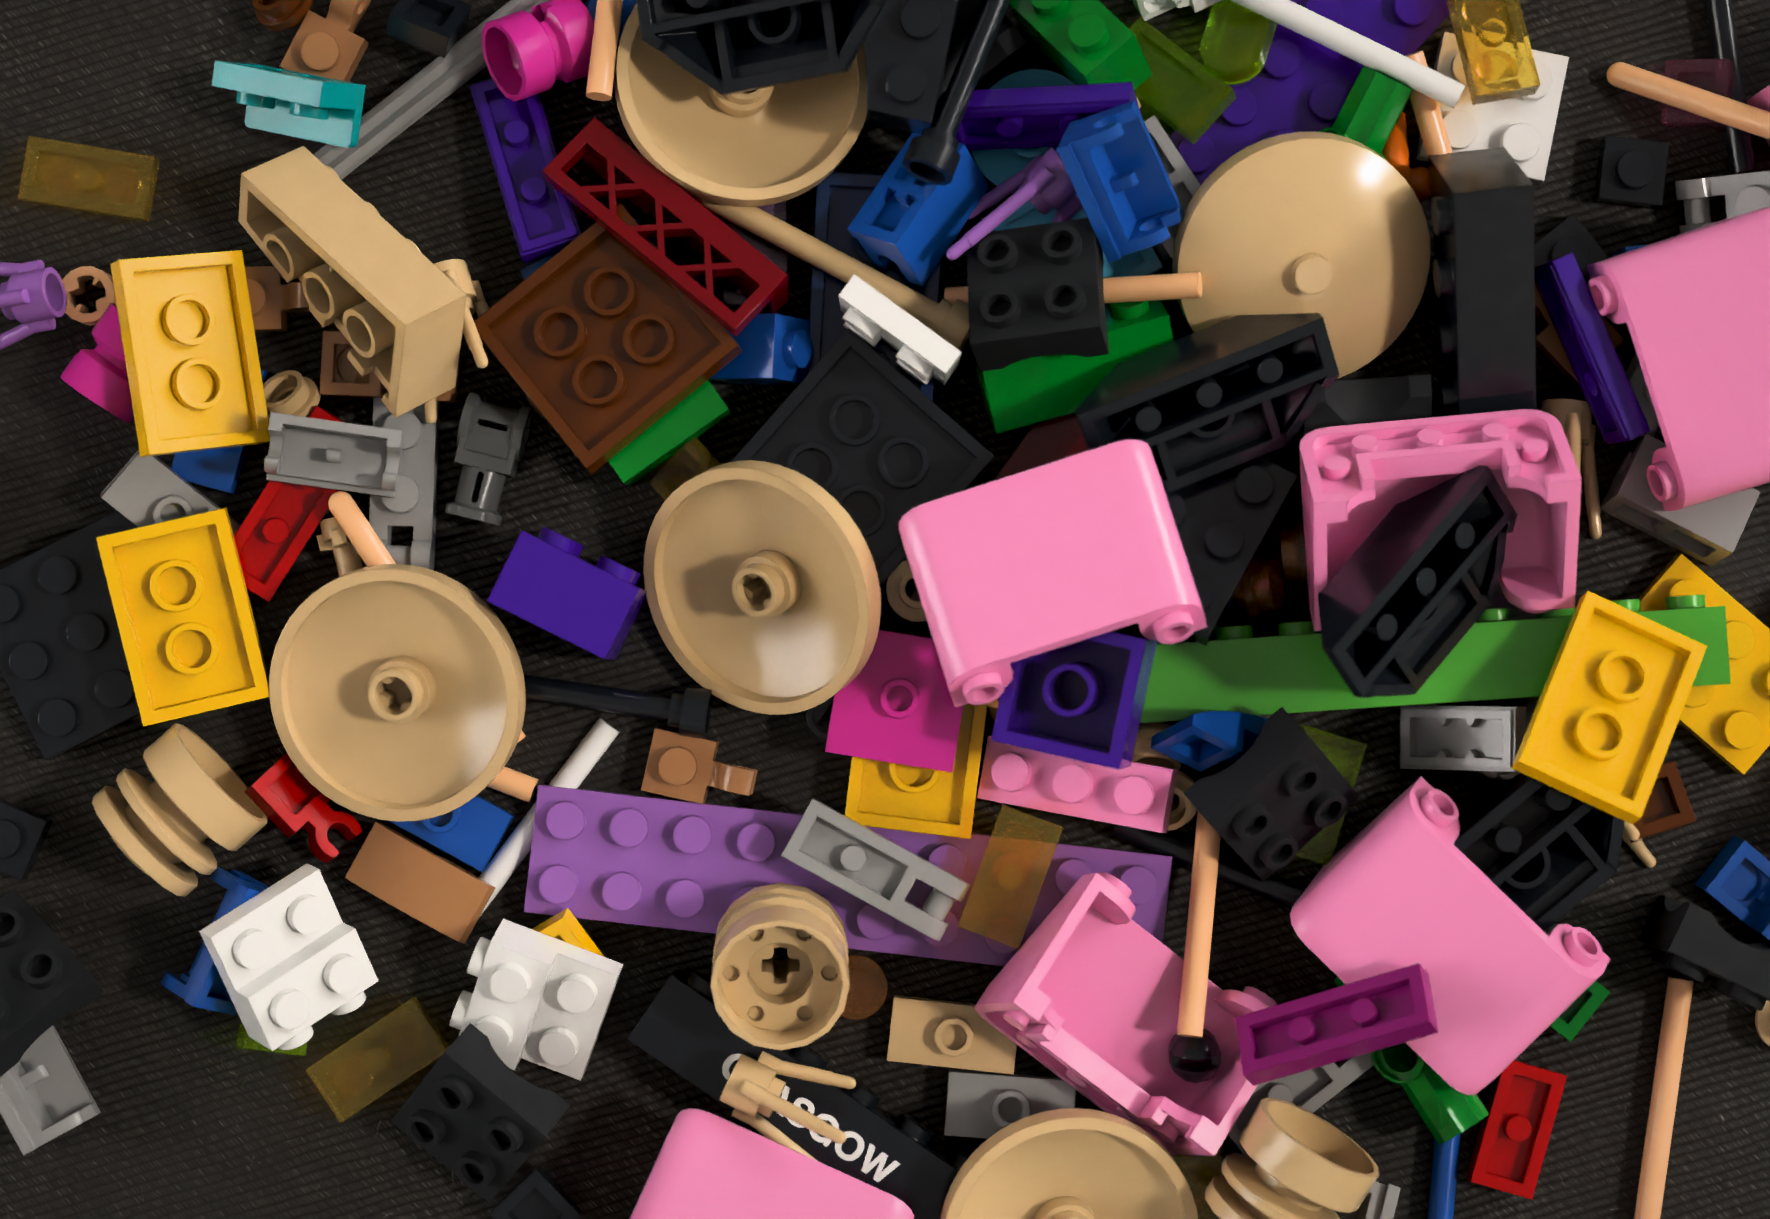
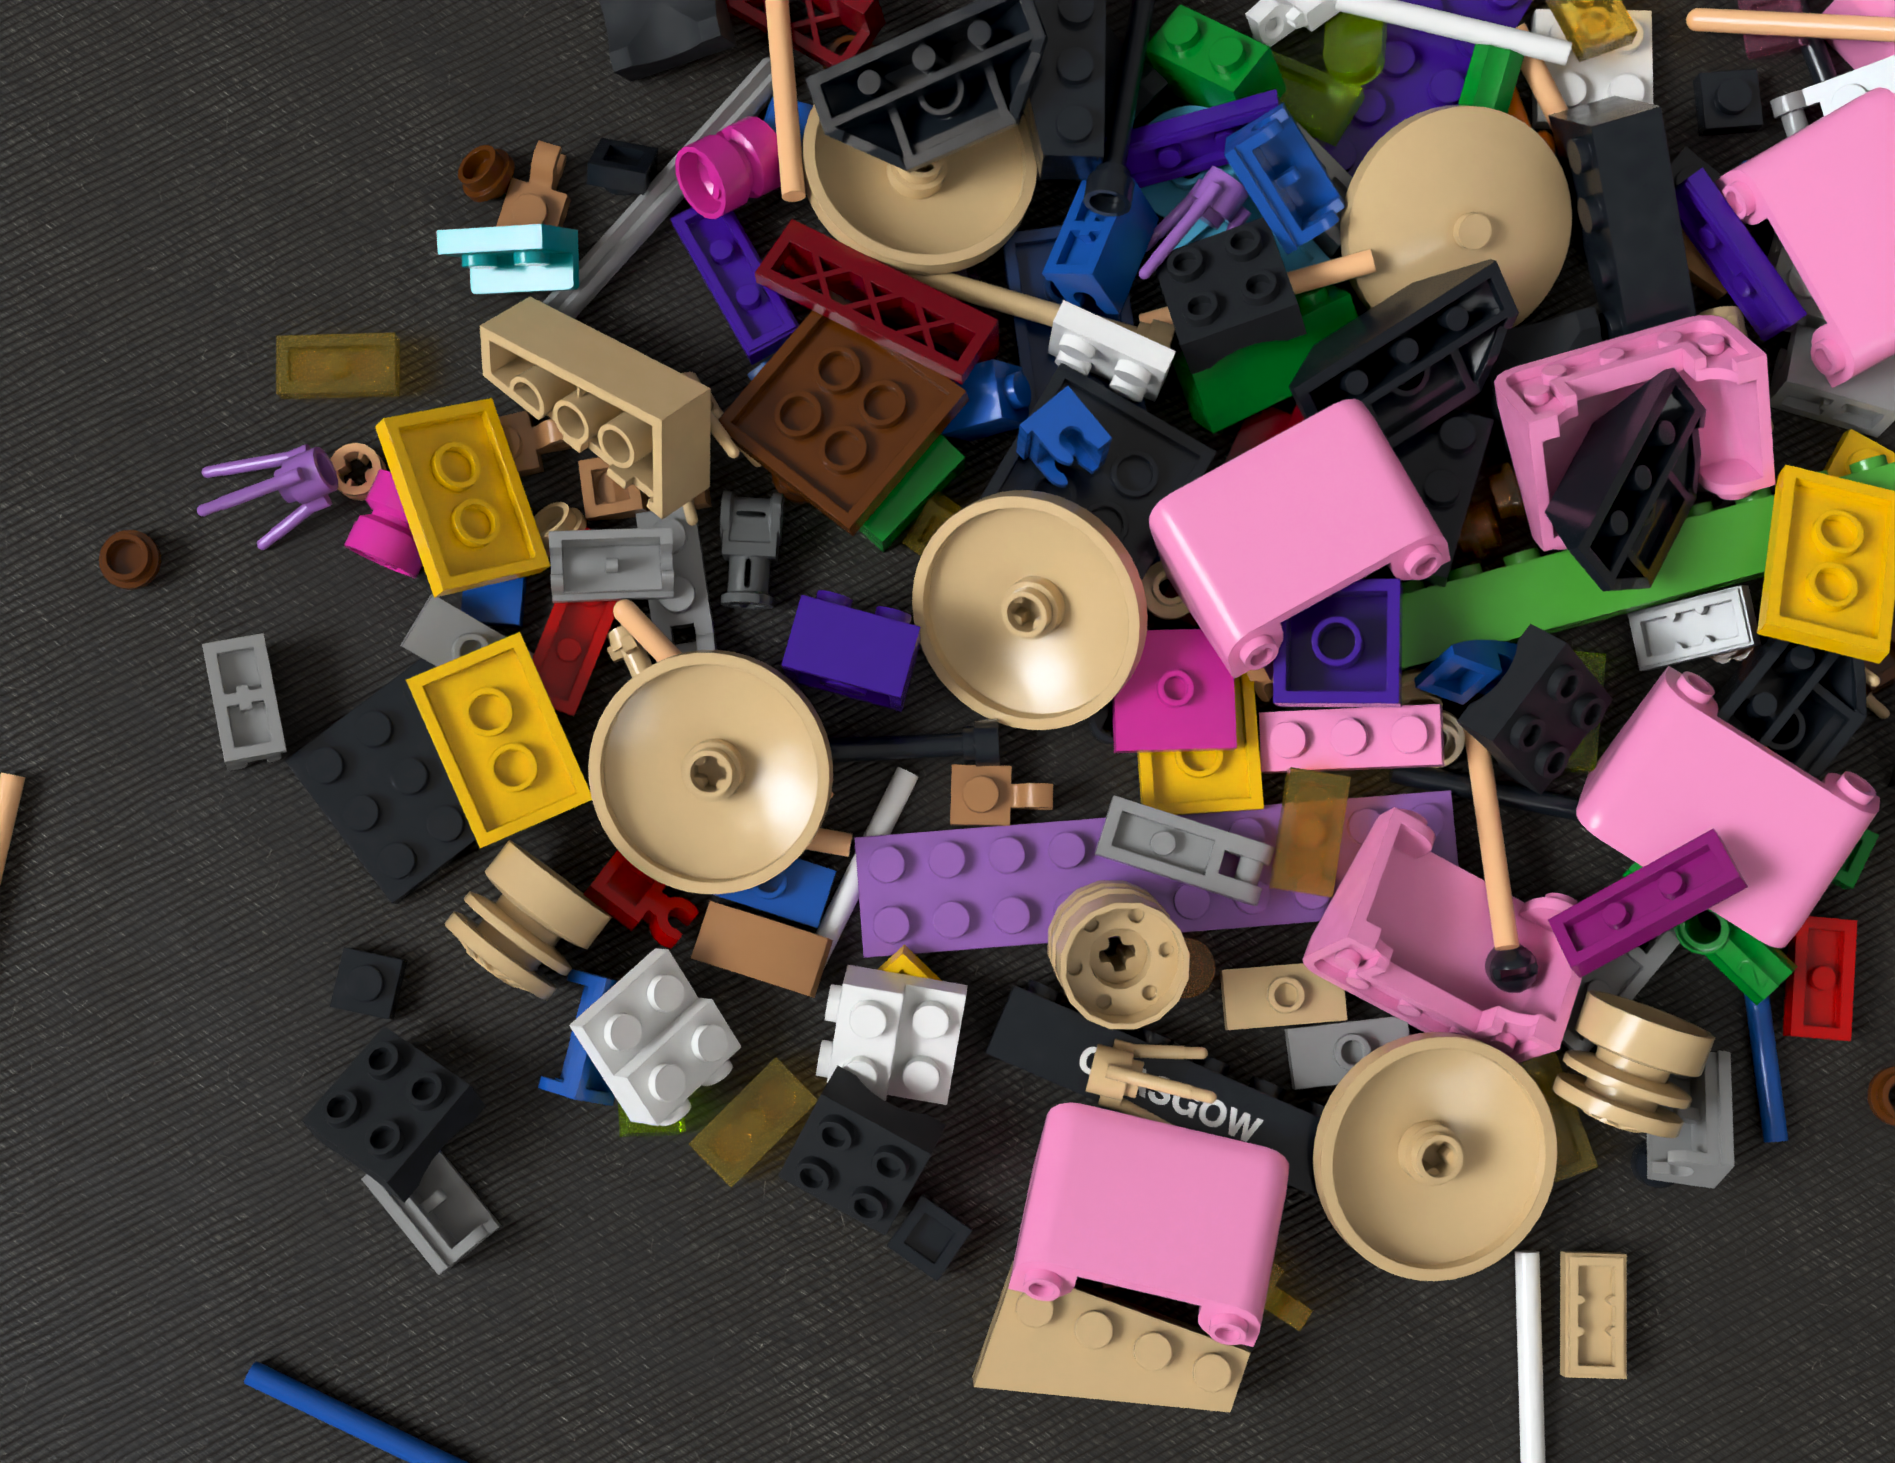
camera: 20 degrees left, 5 degrees down
(819, 410) = (1059, 433): none -> blue hinge

